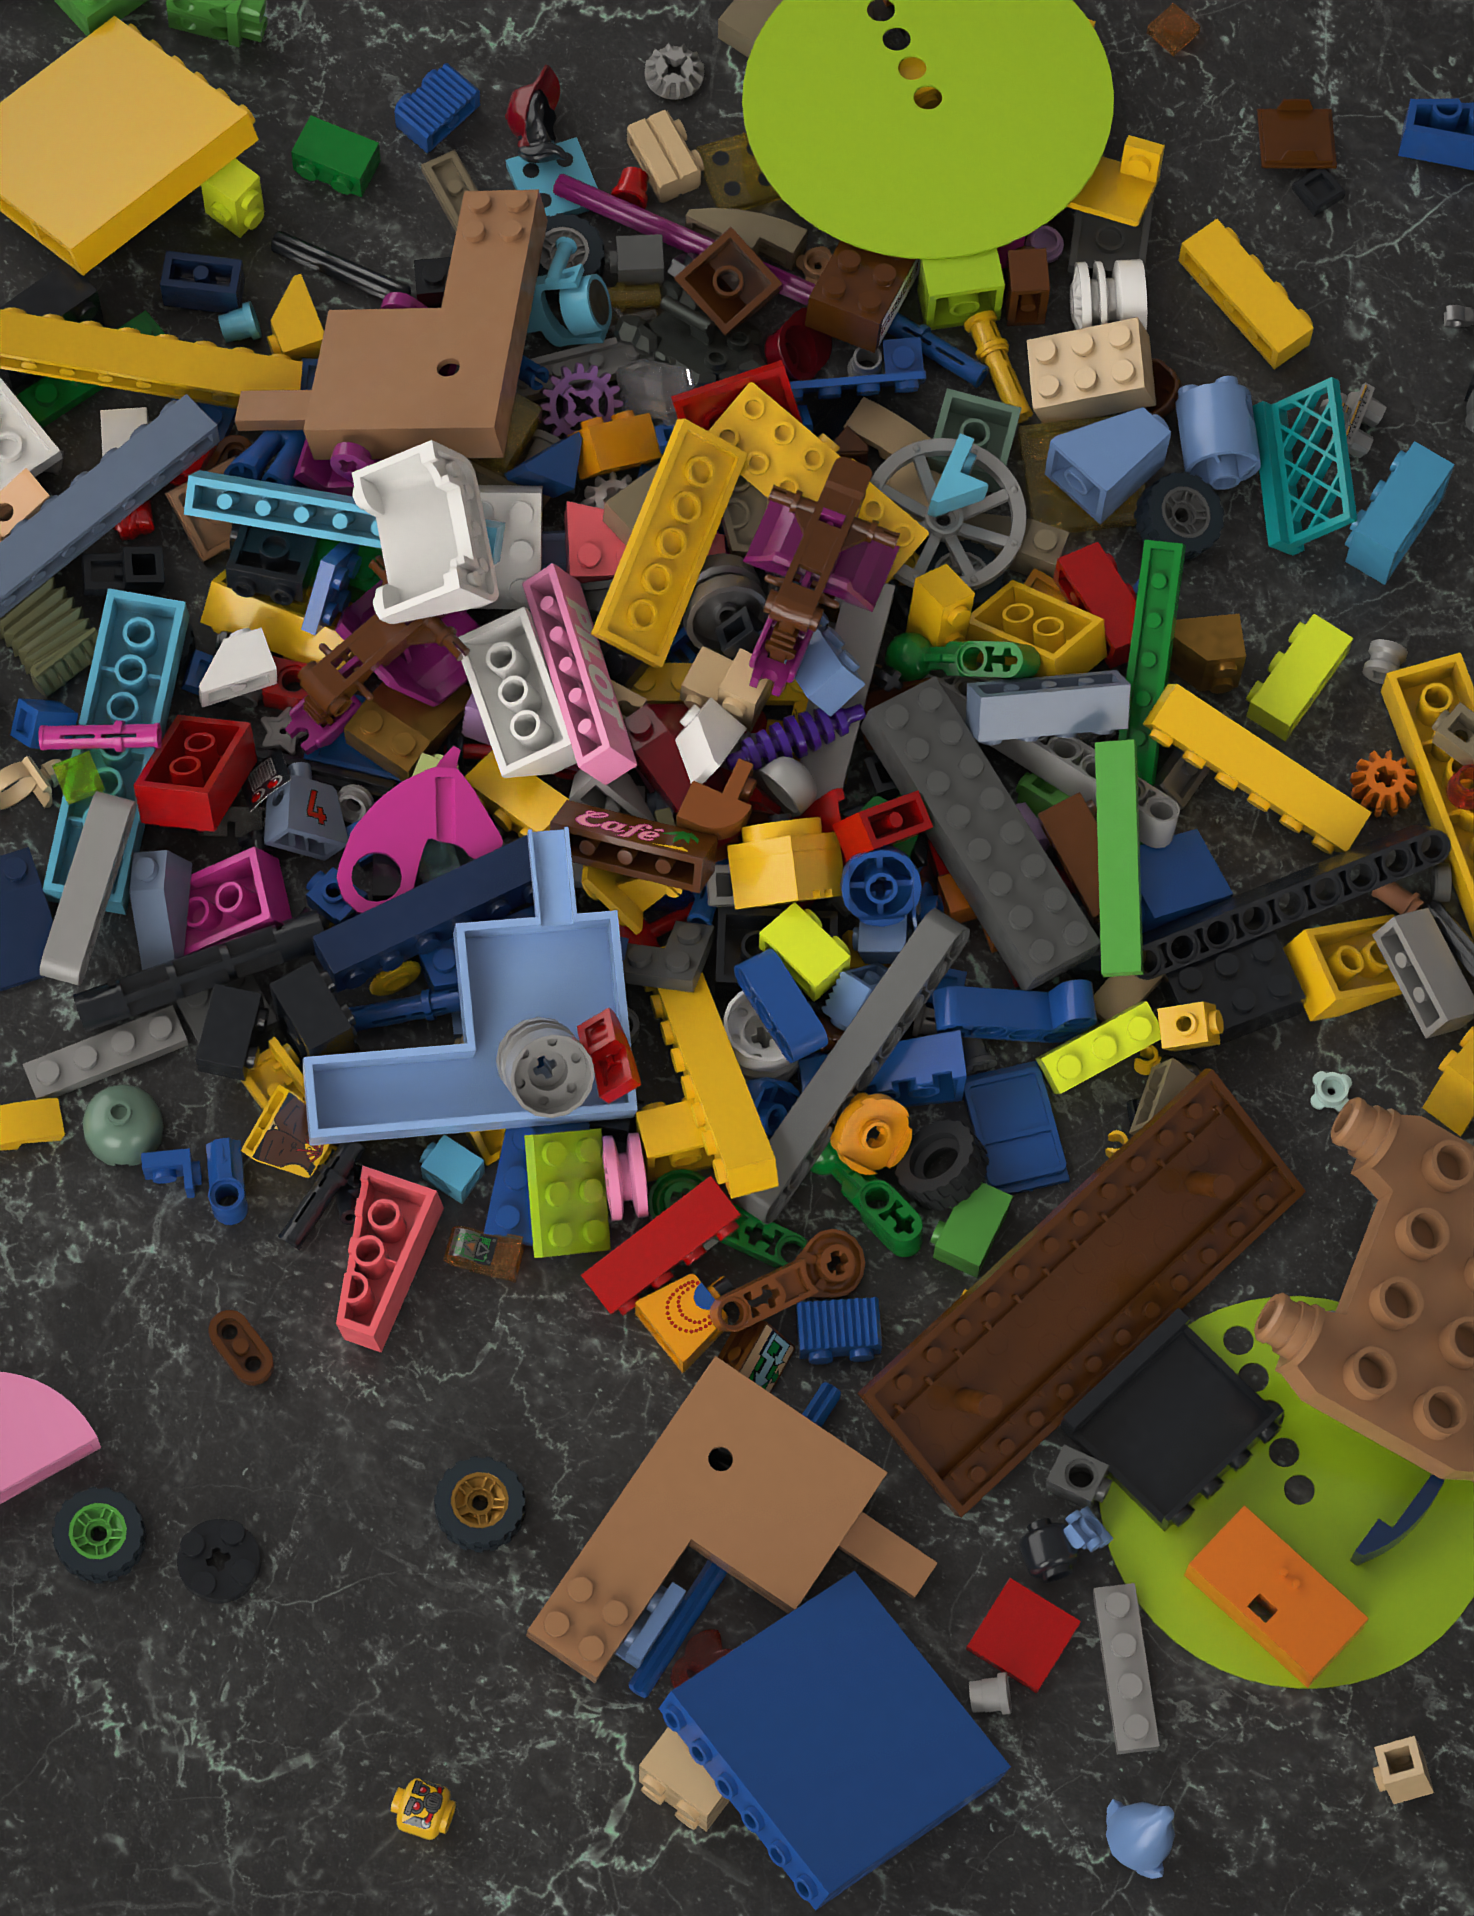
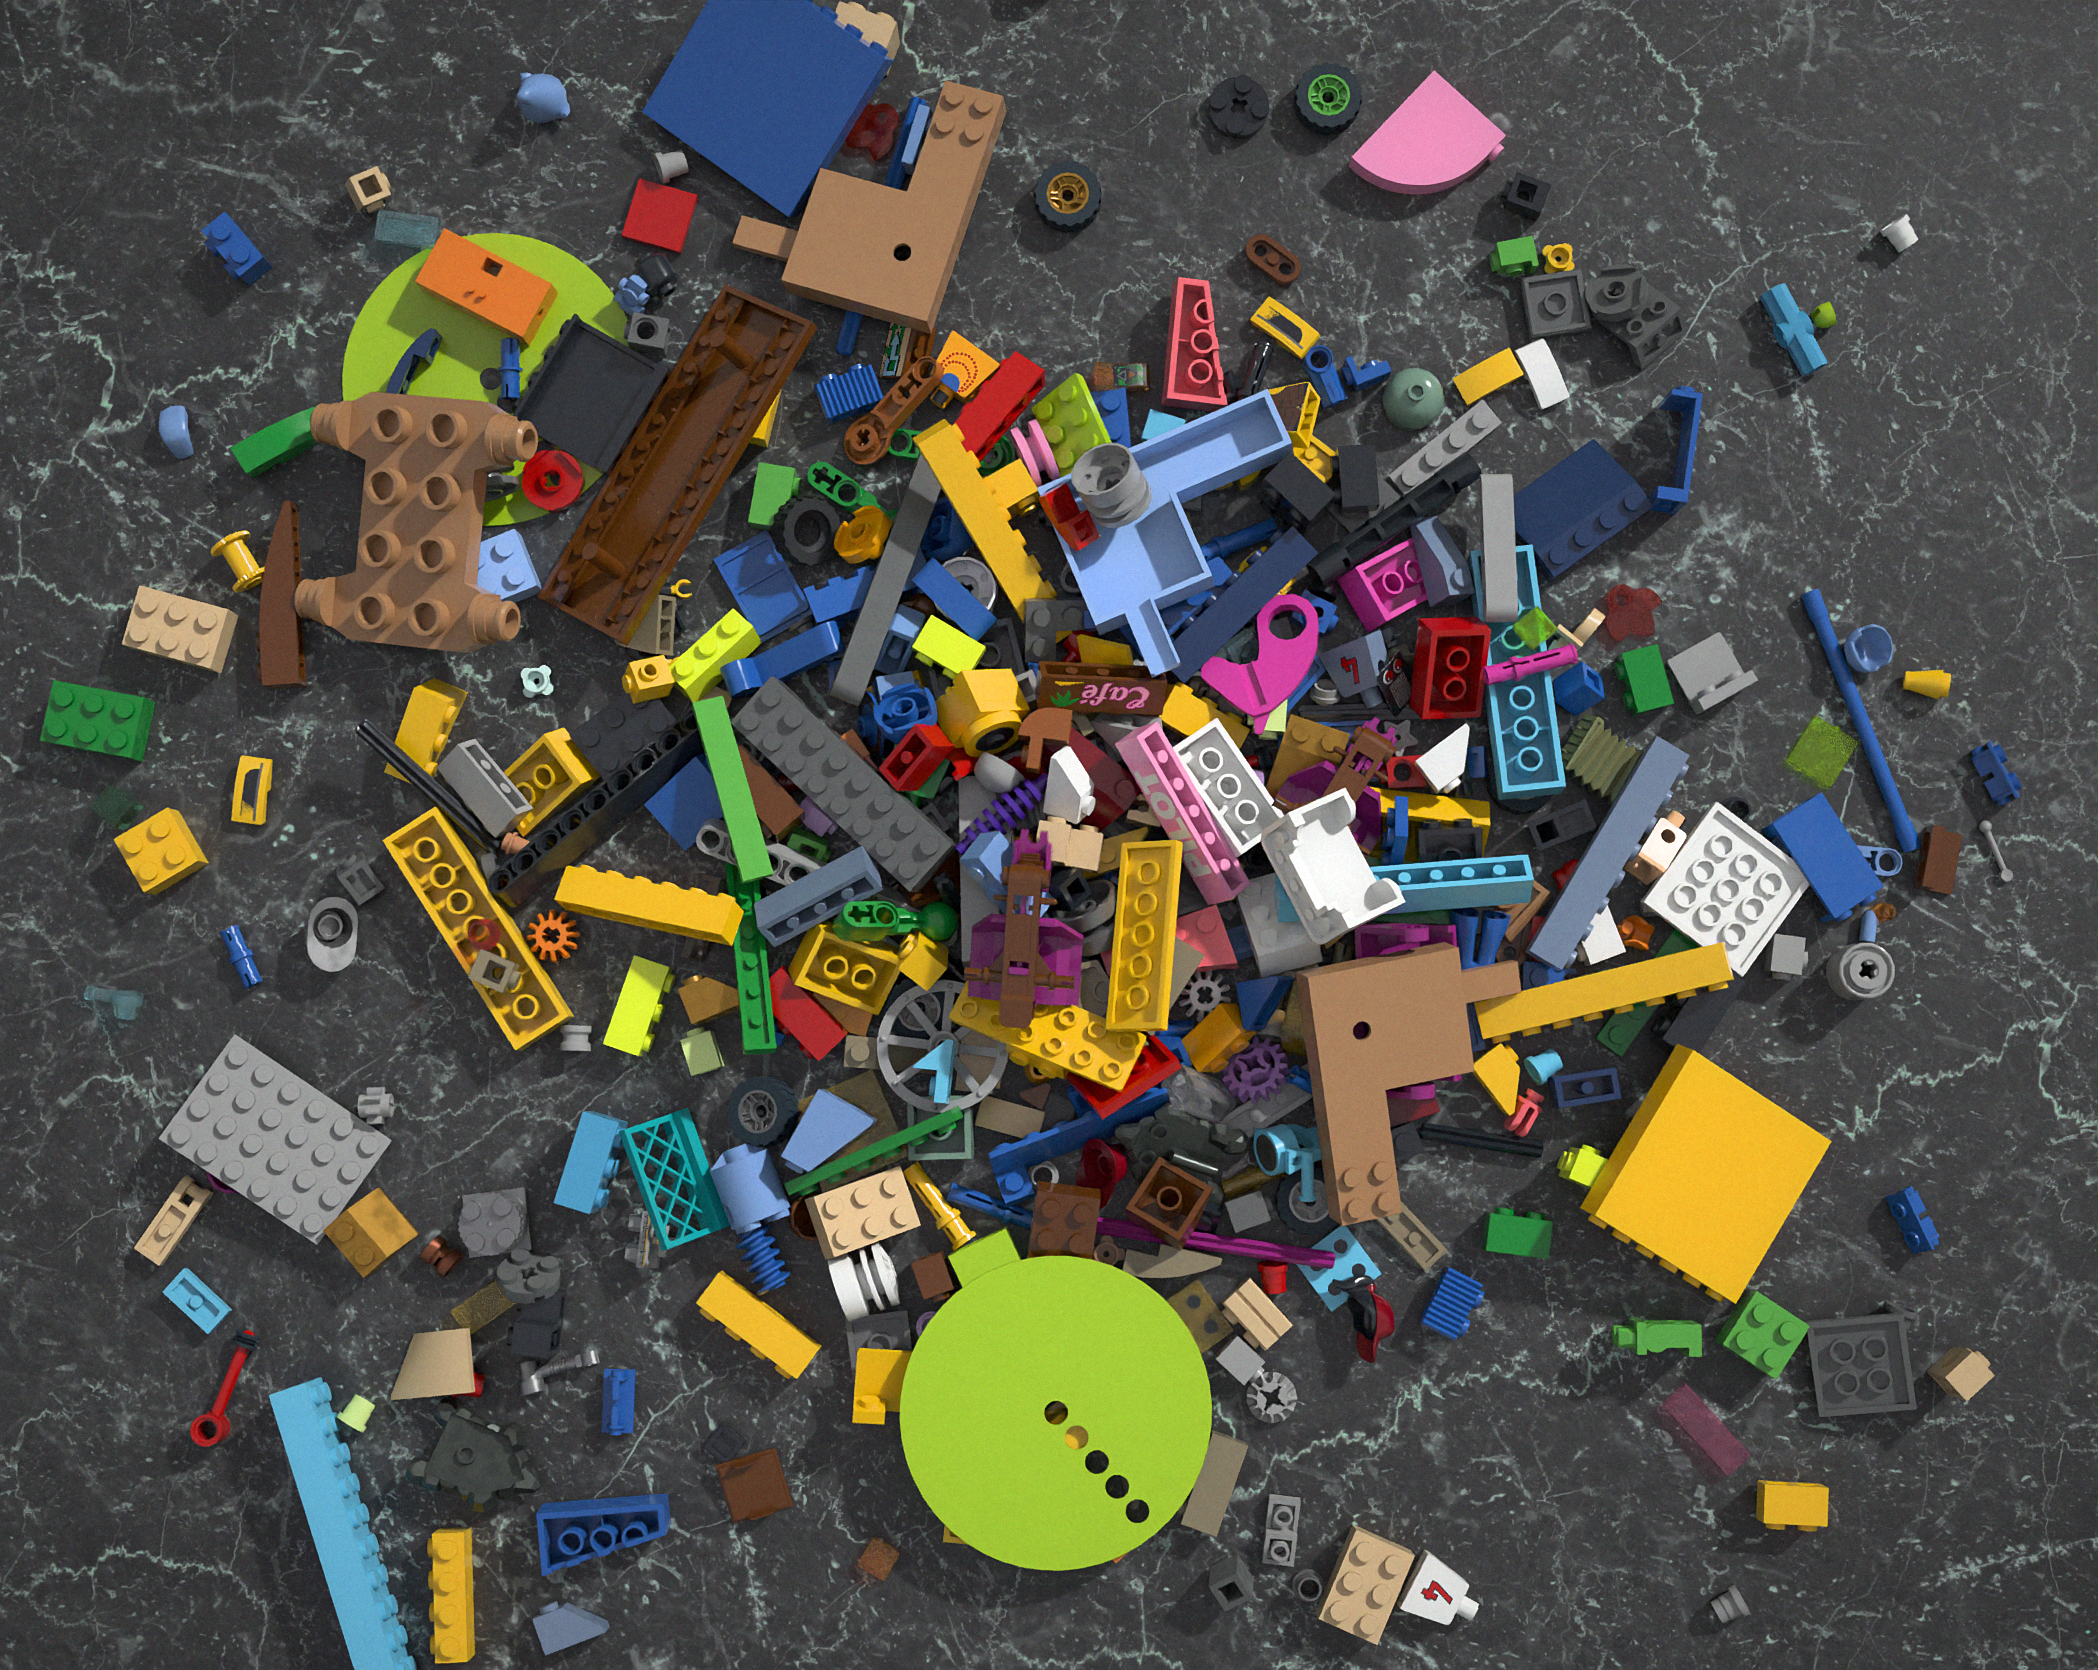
camera: 170 degrees right, 15 degrees up
(80, 437) = (1635, 932): none -> orange arm
(254, 1257) = (1285, 327): none -> yellow slope
(277, 277) = (1525, 1113): none -> coral arm
(699, 114) = (1240, 1360): none -> light grey brick
(1036, 424) = (887, 1147): none -> green plate
(1125, 1668) = (582, 214): light grey plate -> none
(1221, 353) = (763, 1259): none -> blue piece
(1225, 1327) = (570, 481): none -> red plate
(1237, 595) = (701, 1051): none -> yellowish green brick
(1271, 1483) = (510, 369): none -> blue axle
(1333, 1228) = (507, 568): none -> light blue brick
(1363, 1709) = (407, 229): none -> clear light blue plate
(1432, 263) = (618, 1401): none -> blue hinge

